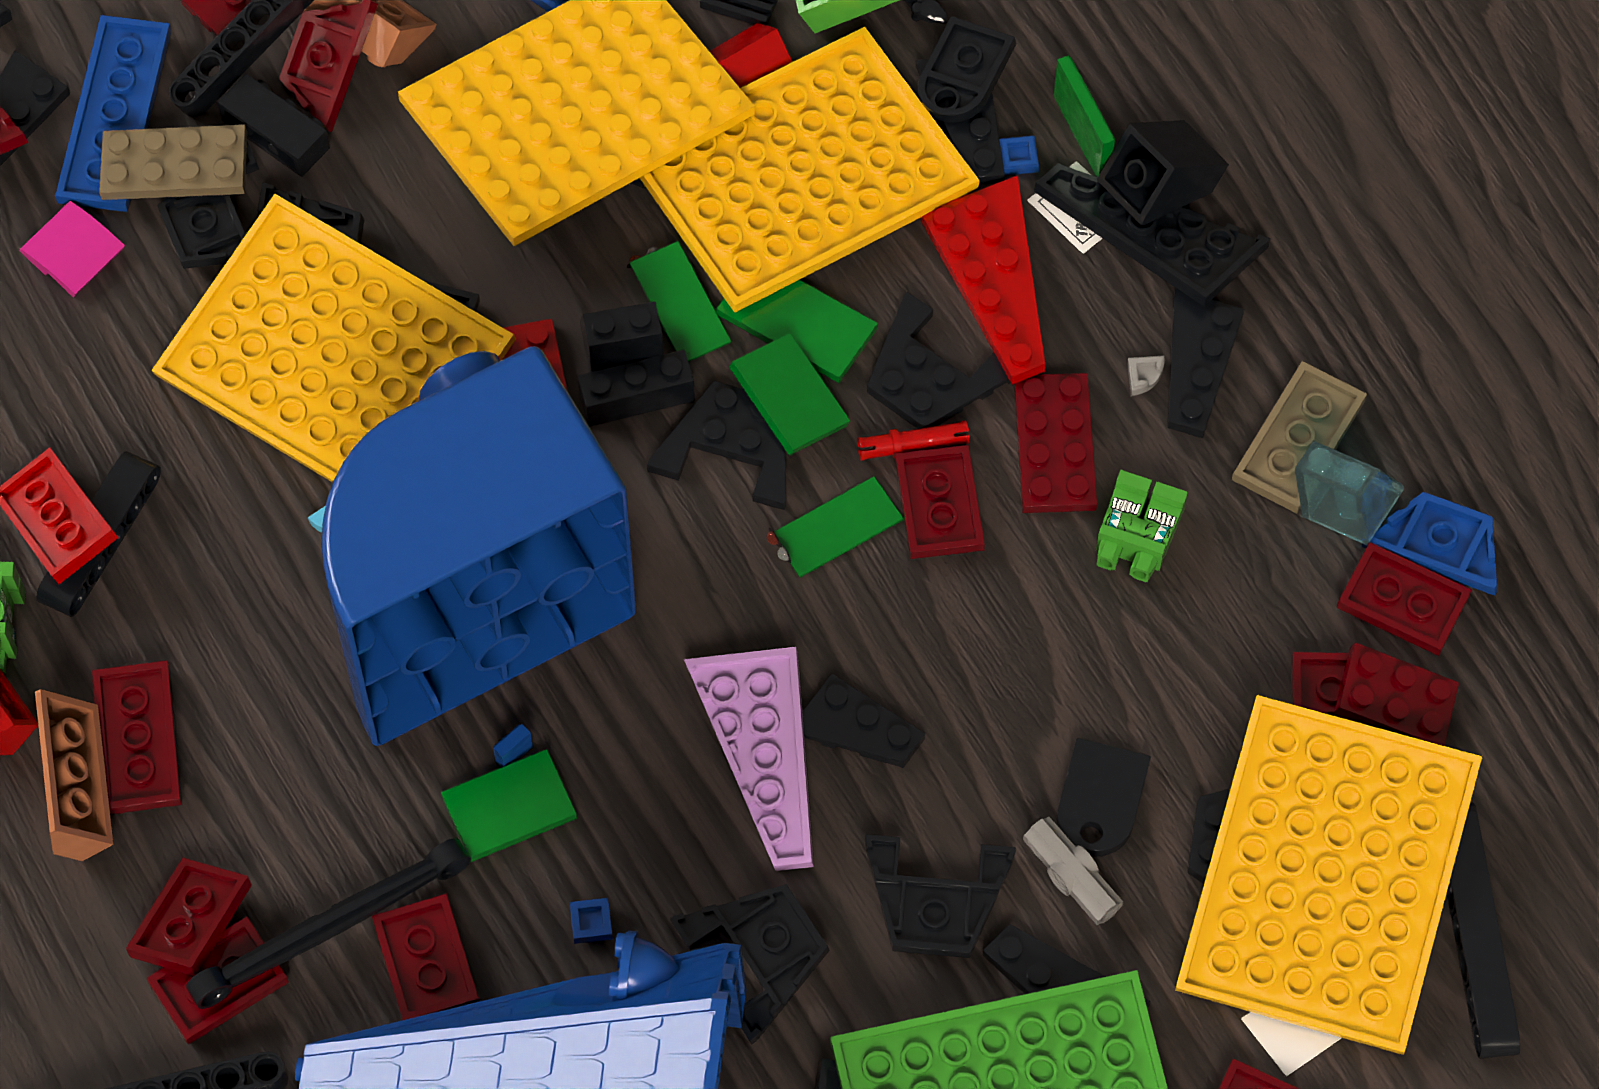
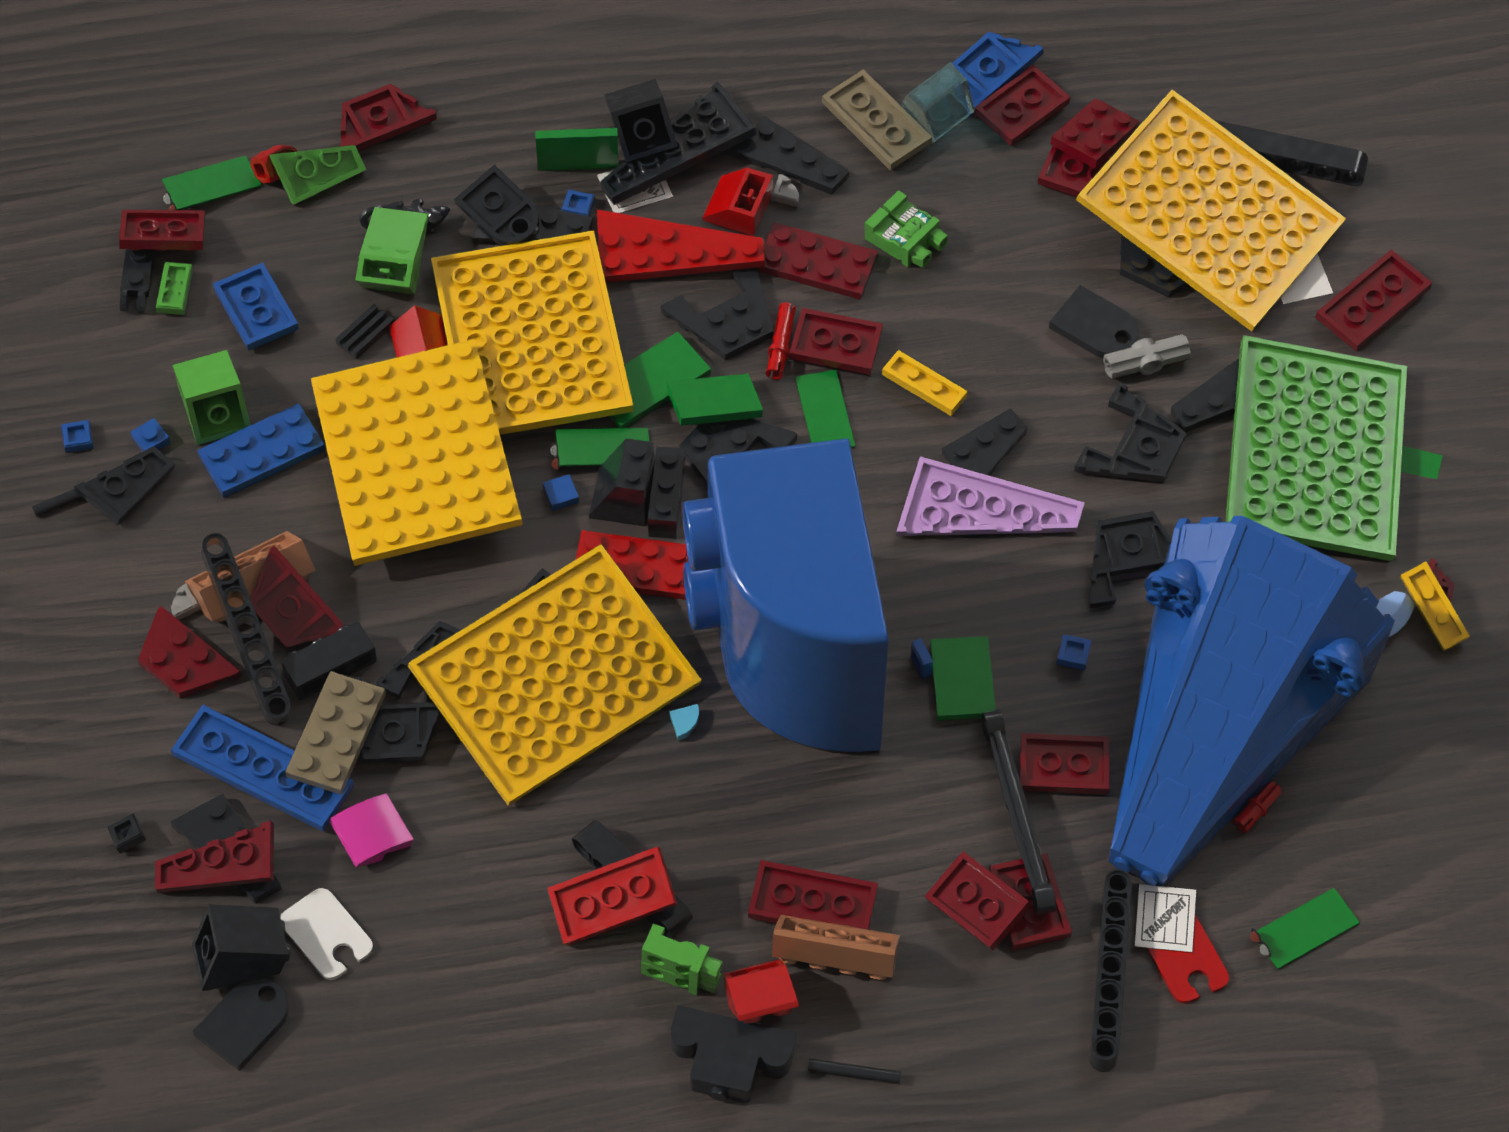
camera: 70 degrees left, 5 degrees down
(599, 280) = (560, 492): none -> blue tile
(920, 622) = (924, 383): none -> yellow plate
(1096, 326) = (740, 200): none -> red slope

